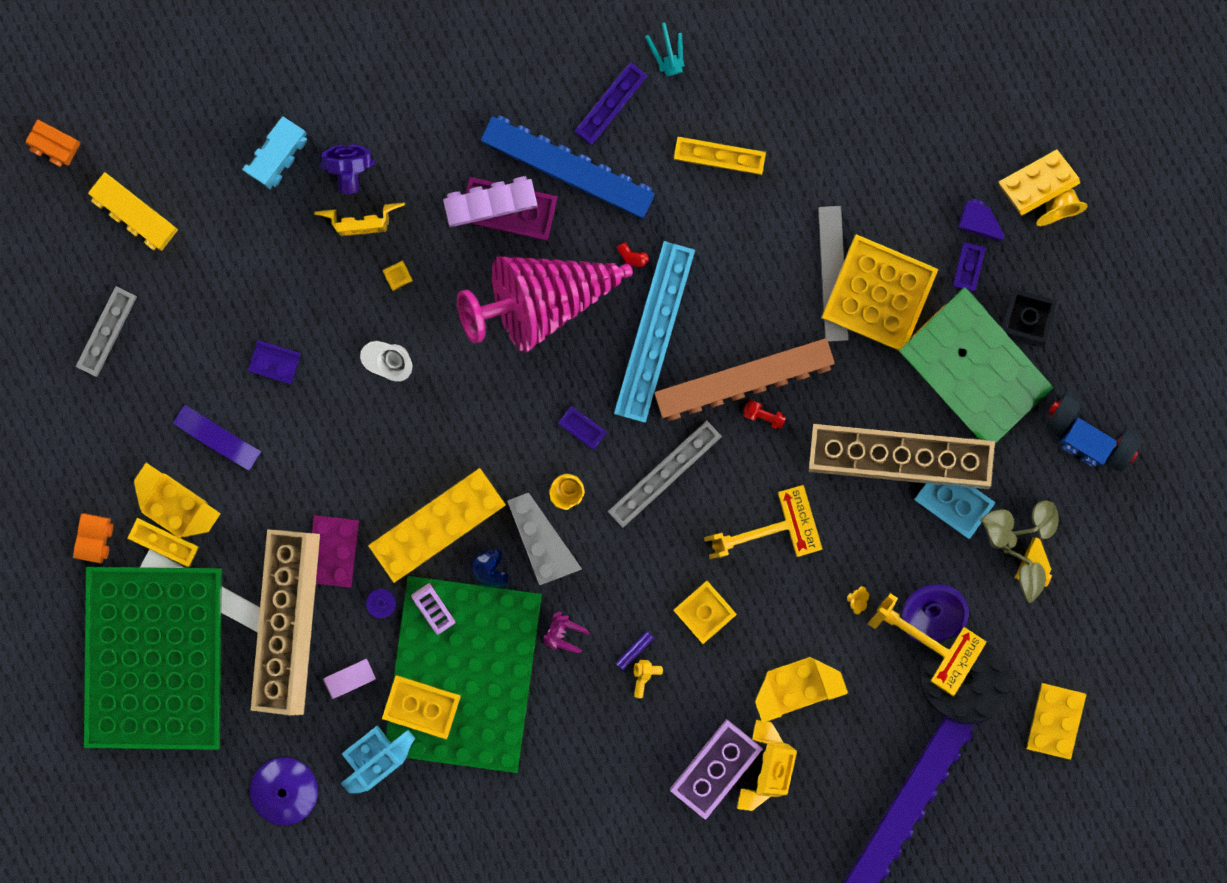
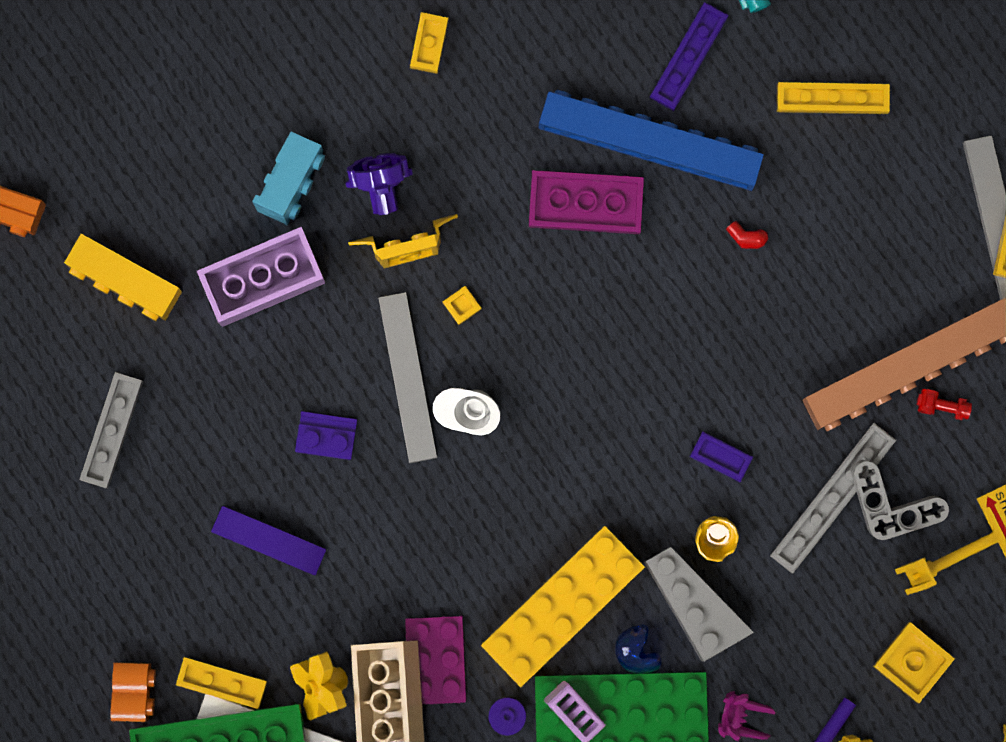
camera: 10 degrees left, 5 degrees down
(172, 504) = (226, 633): yellow piece -> none
(240, 556) = (321, 684): none -> yellow plant
(241, 228) = (261, 277): none -> lavender brick
(345, 326) = (407, 378): none -> light grey tile
(404, 60) = (429, 43): none -> yellow plate
(490, 202) = (564, 196): lavender brick -> none
(537, 296) = (639, 303): dark pink plant -> none
(654, 331) = (790, 324): medium azure plate -> none
(701, 490) = (883, 511): none -> light grey beam

